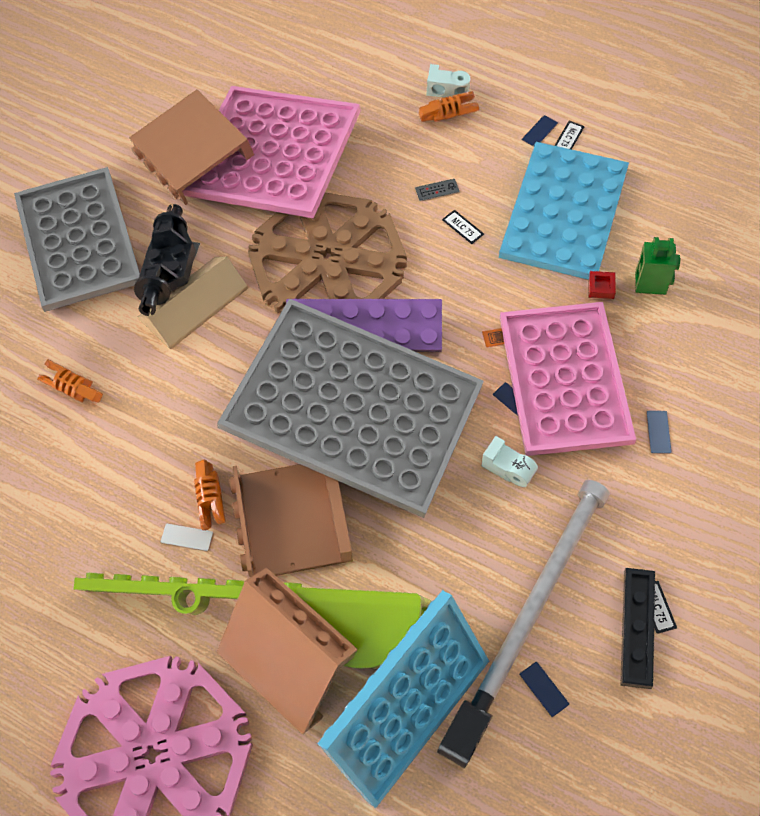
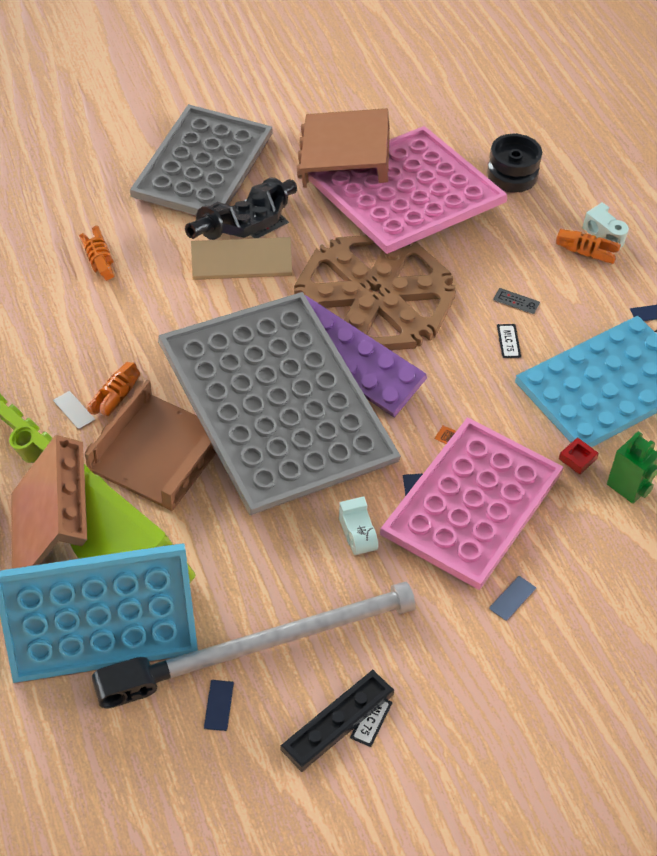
camera: 35 degrees right, 10 degrees down
(334, 72) = (514, 162): none -> black wheel

